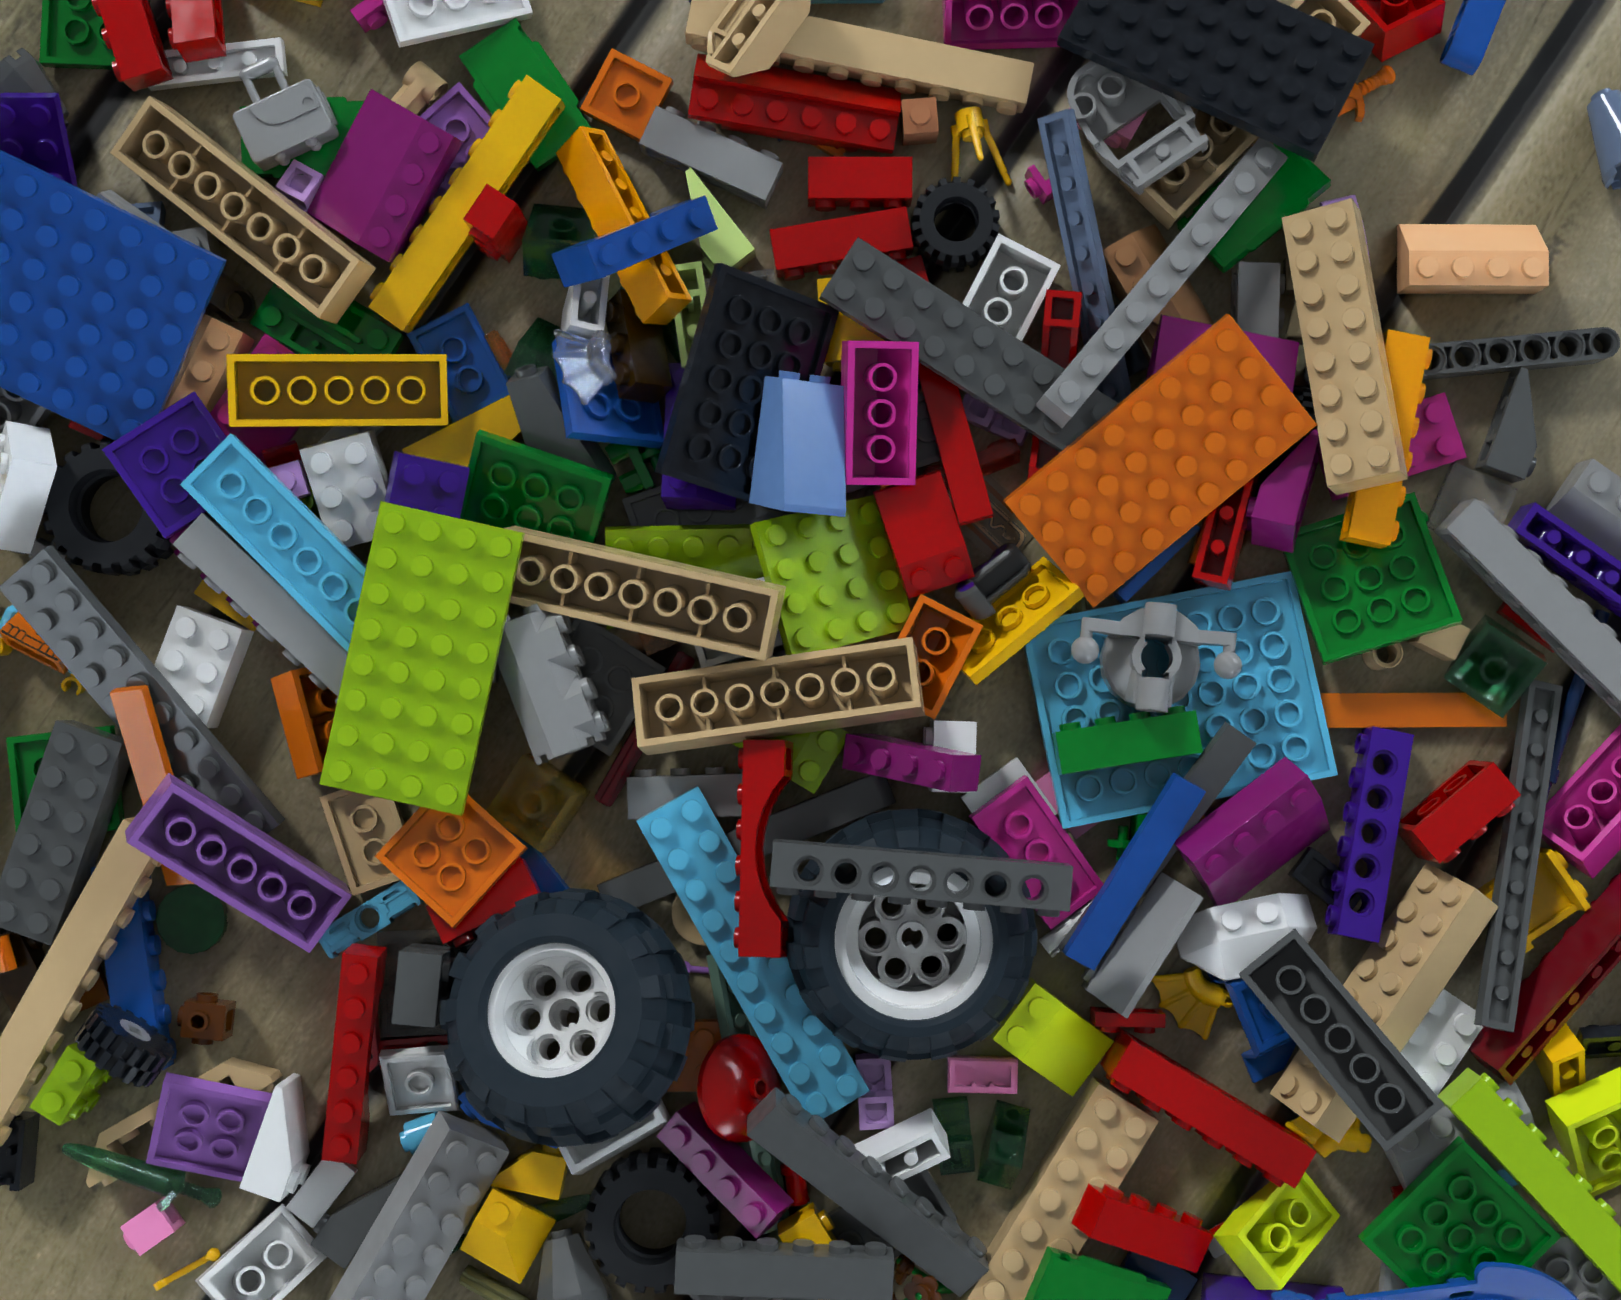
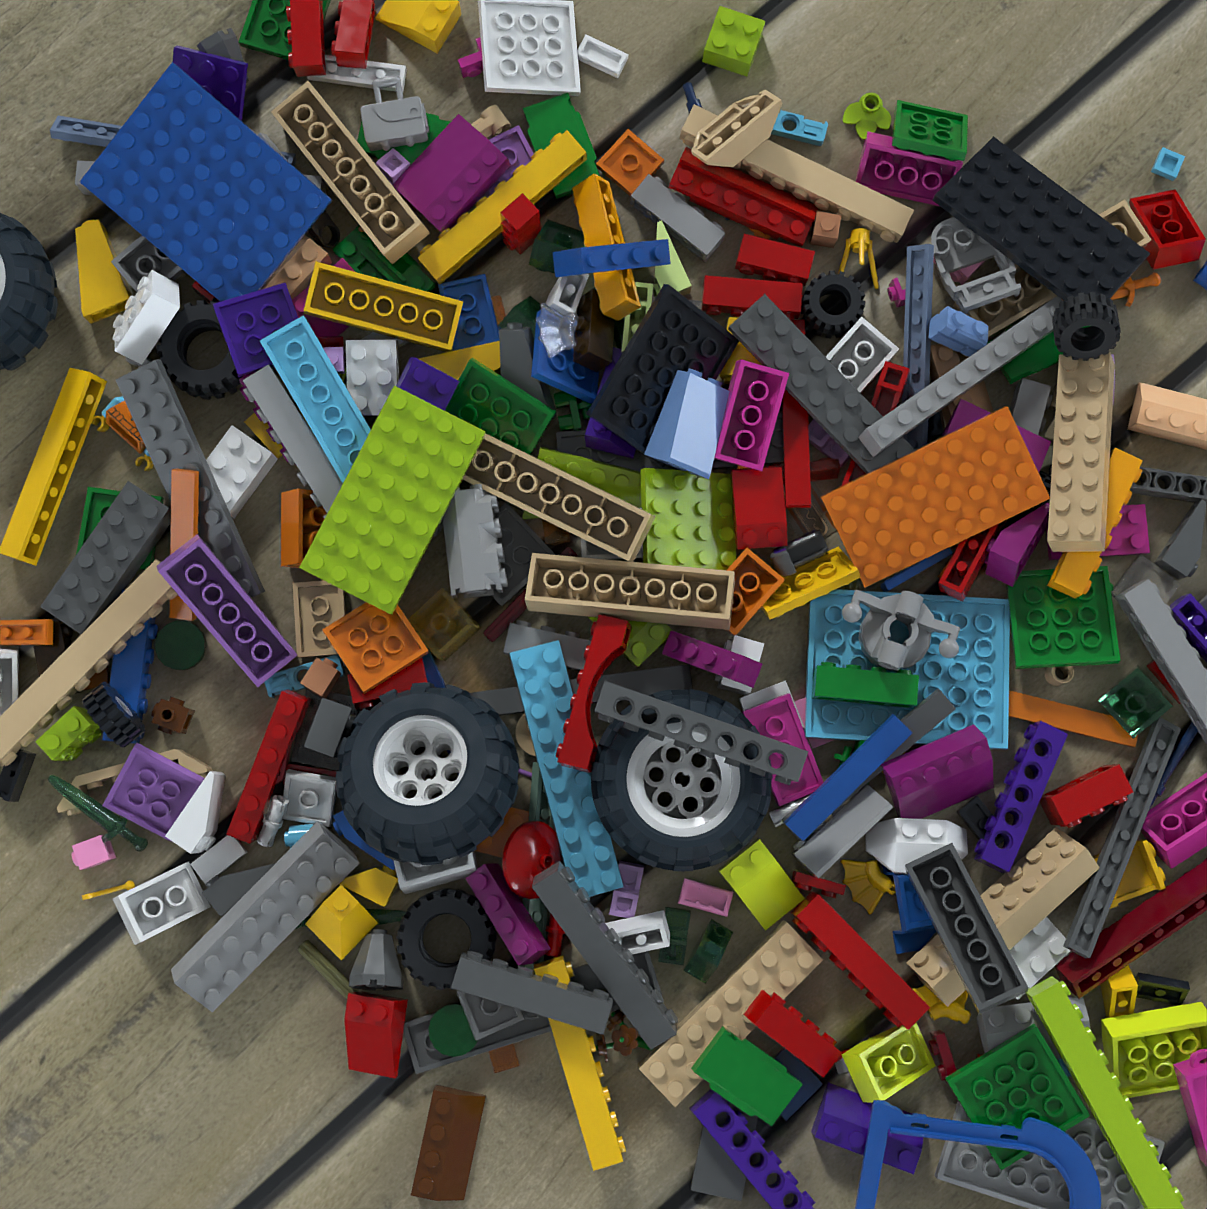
camera: 10 degrees right, 5 degrees down
(379, 1123) = (272, 820): none -> white pin
(392, 917) = (321, 677): none -> nougat brick
(1136, 222) = (958, 331): none -> medium blue brick
(1311, 172) = (1086, 311): none -> black tyre
(1341, 1192) = (940, 1047): none -> dark red plate
(1443, 643) = (1102, 675): tan brick -> none

